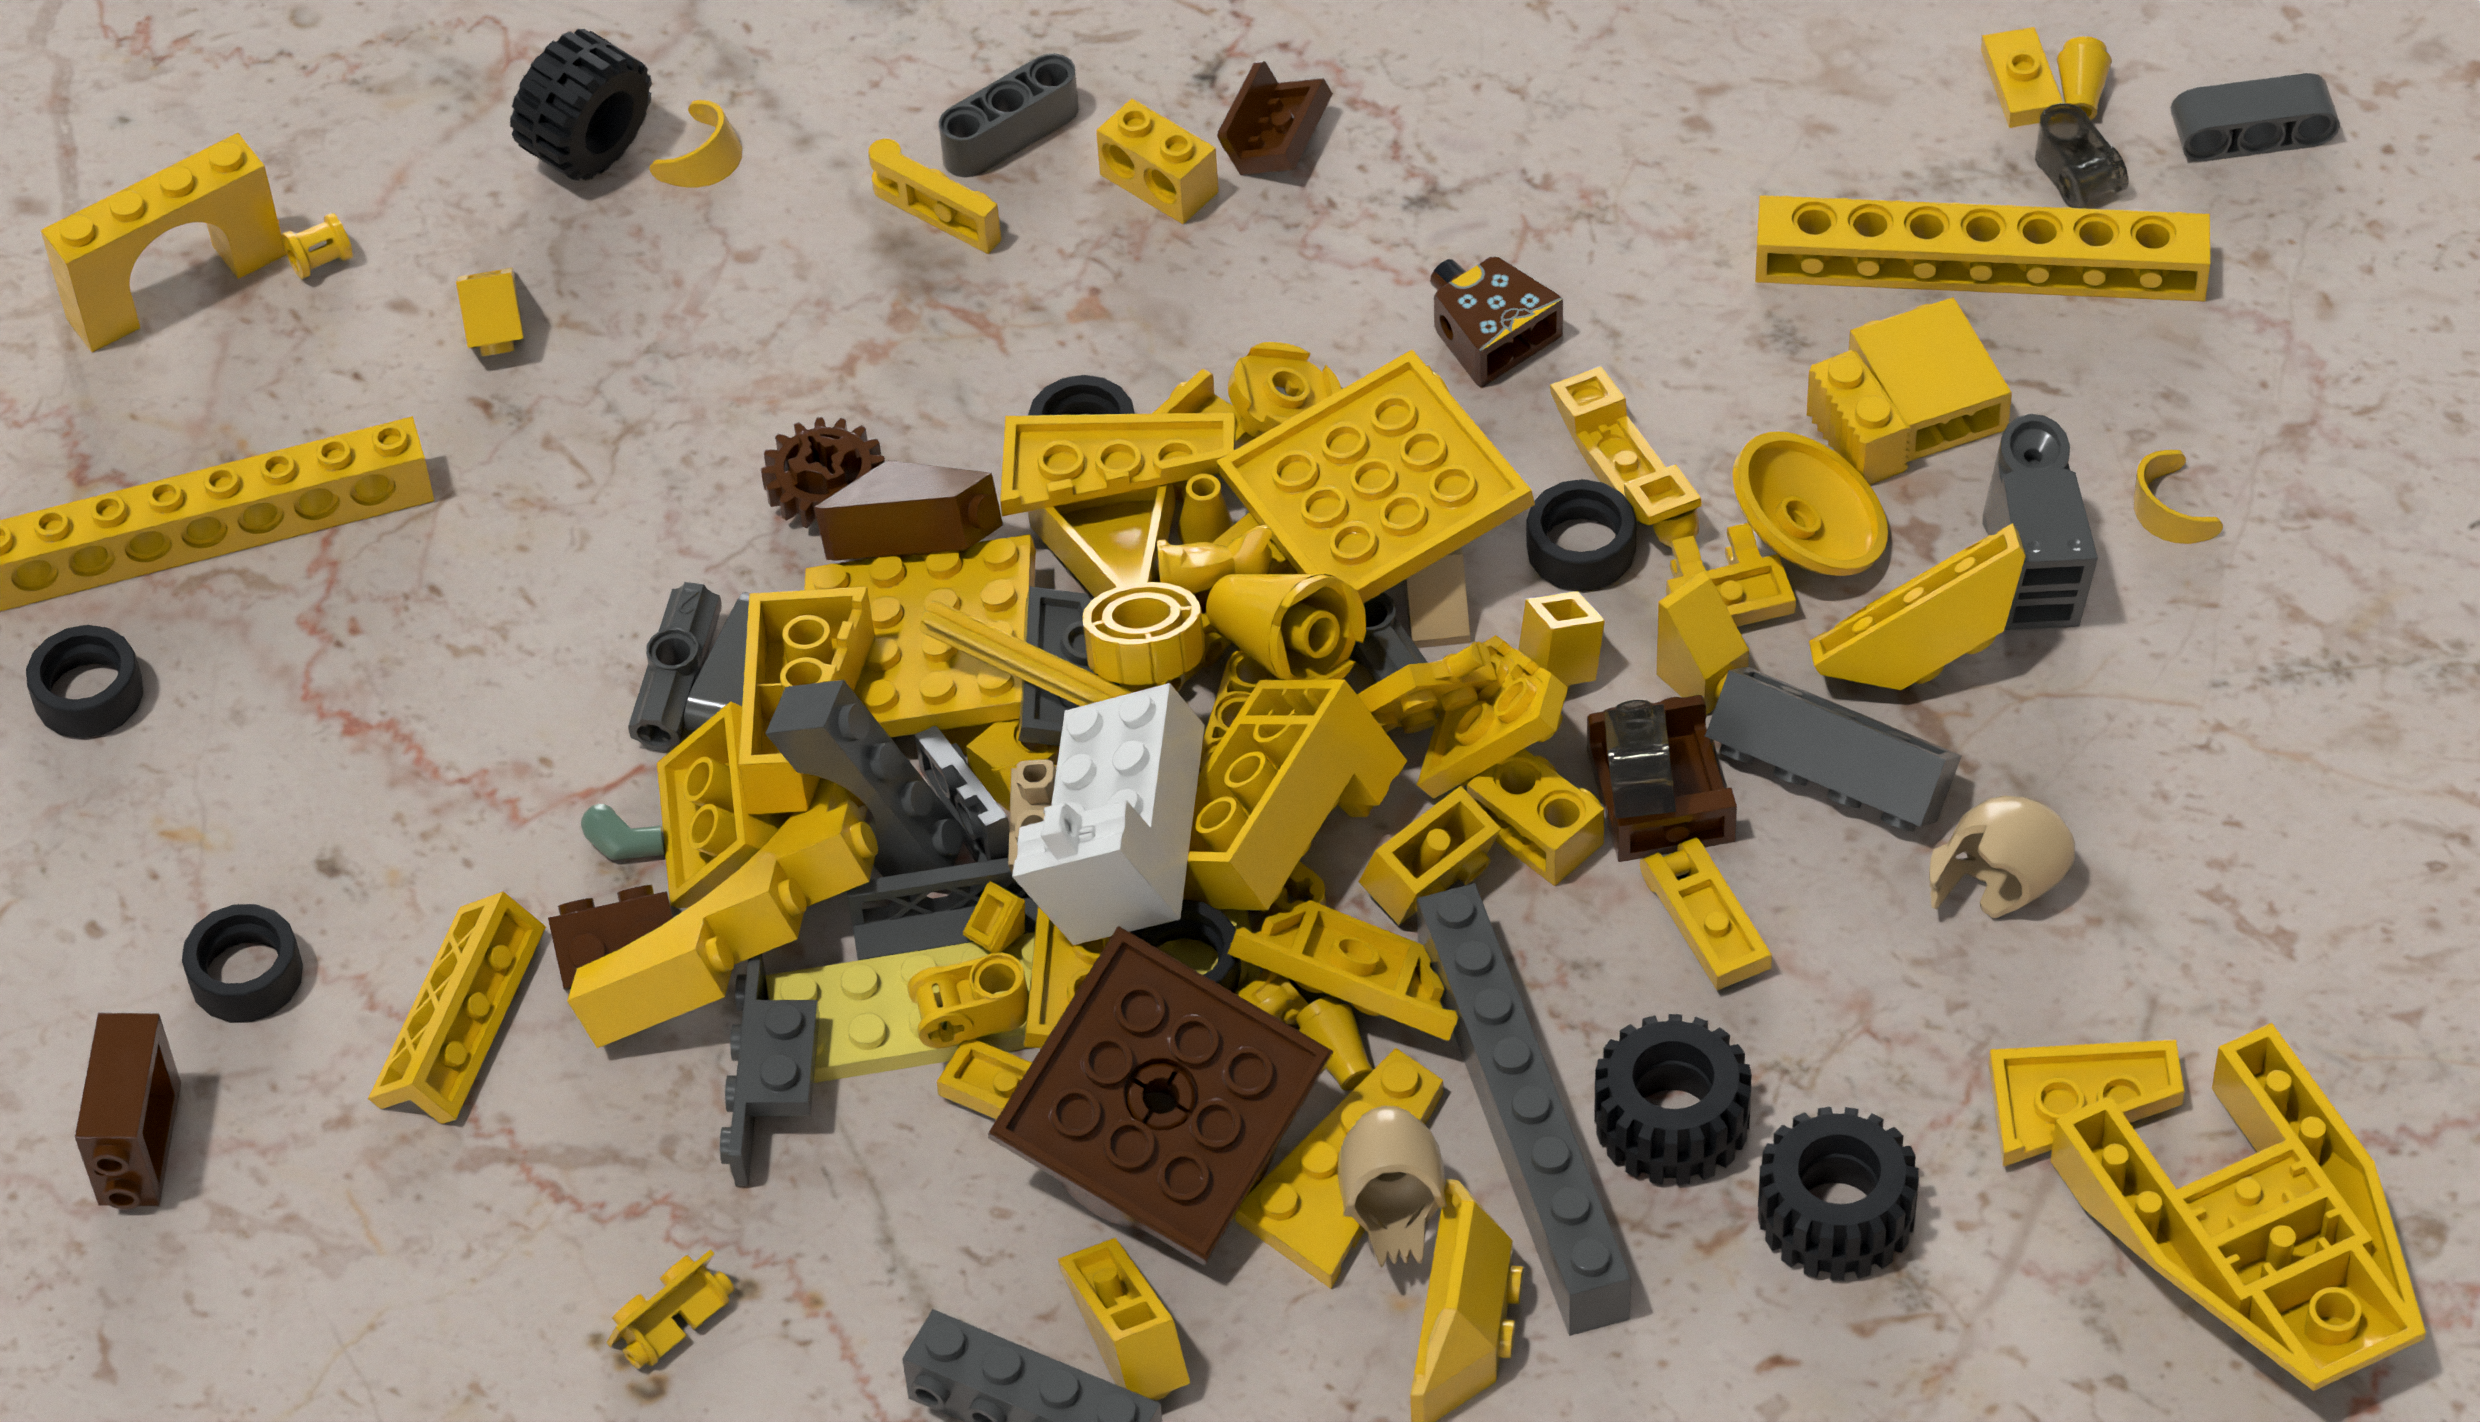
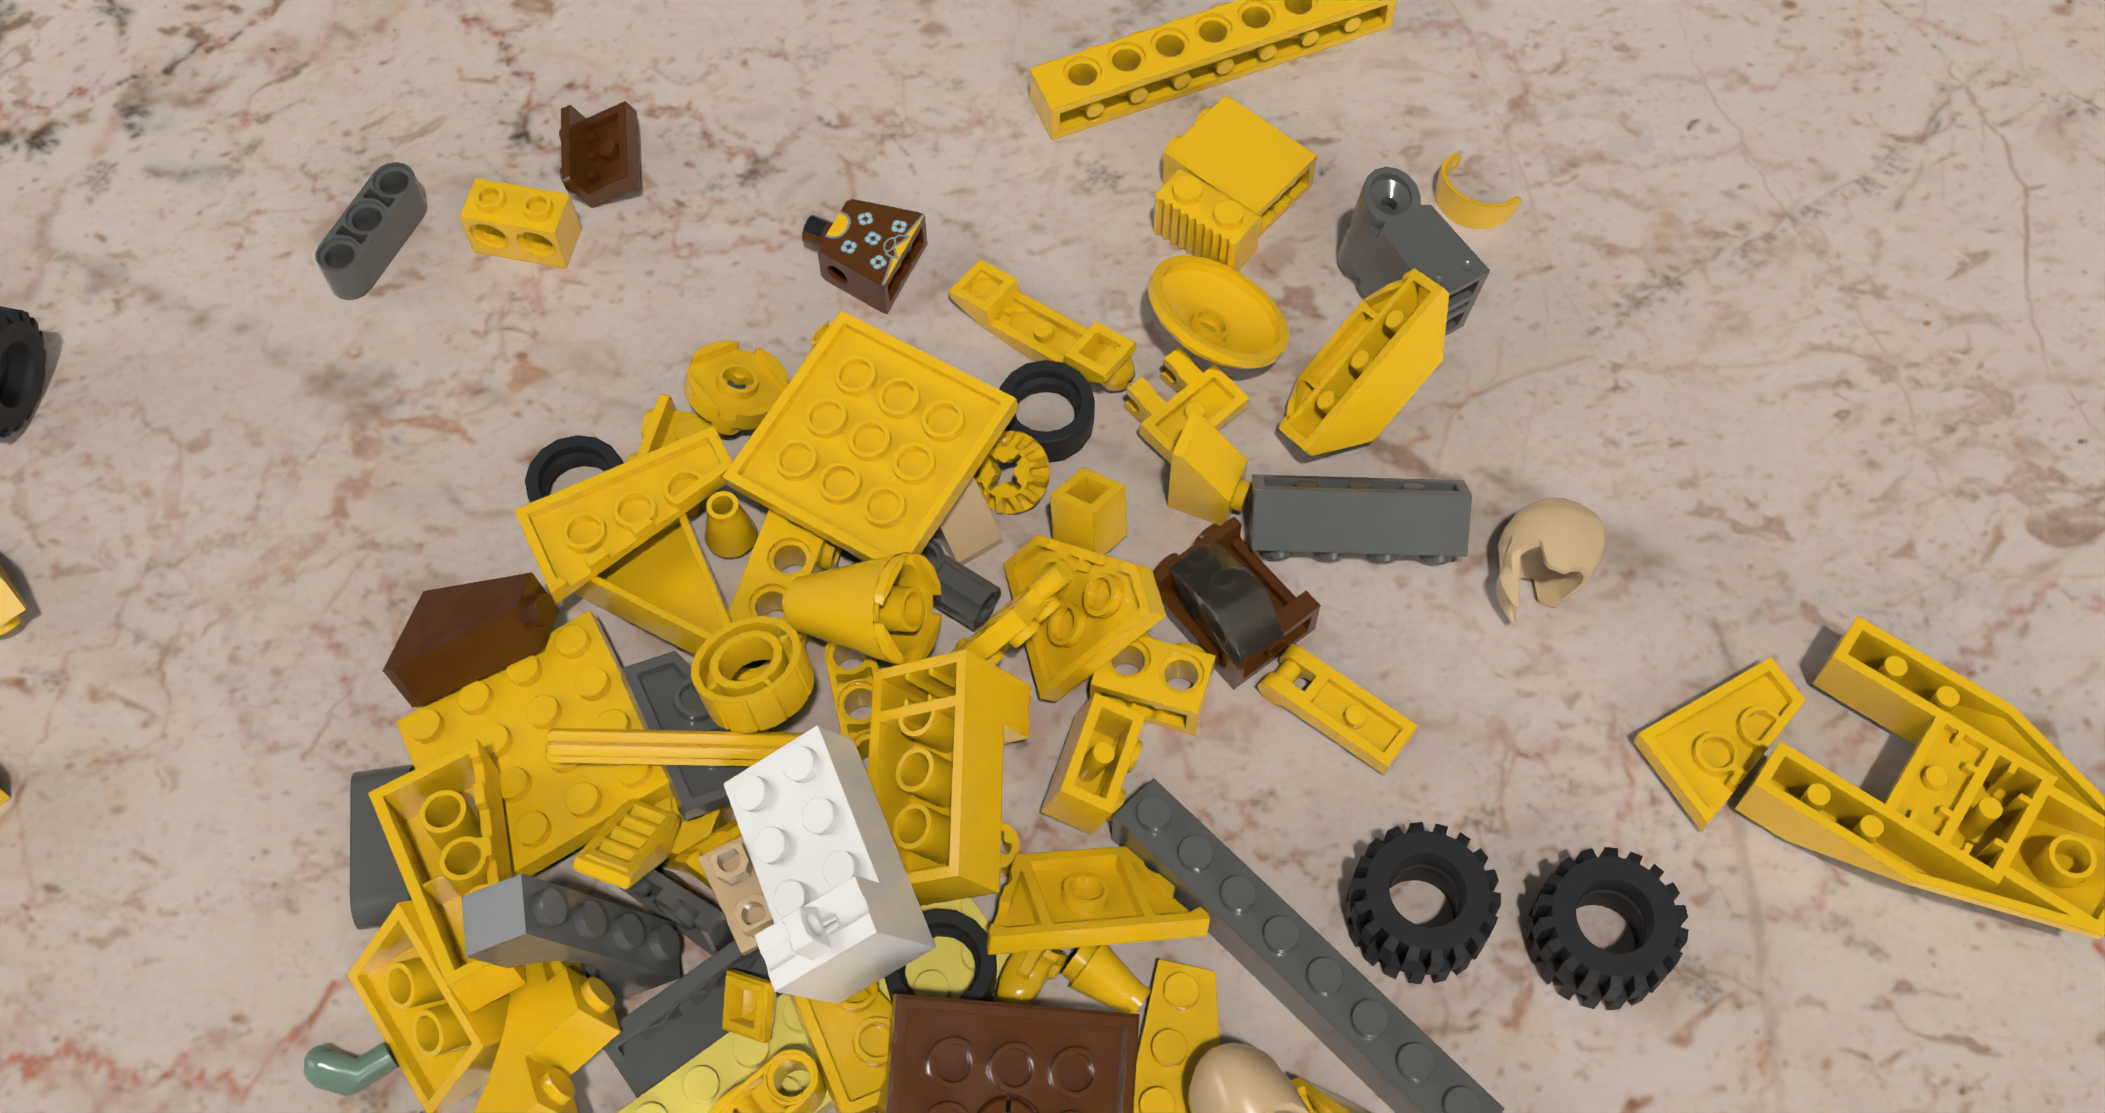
camera: 30 degrees left, 10 degrees up
(674, 664) = (323, 905): dark grey piece -> none
(709, 162) = (124, 372): yellow helmet -> none
(816, 466) = (371, 602): reddish brown gear -> none
(933, 197) = (341, 327): yellow plate -> none
(958, 732) = (629, 844): none -> yellow slope
(1203, 563) = (763, 580): yellow animal -> none
(1527, 580) = (1031, 473): none -> yellow gear

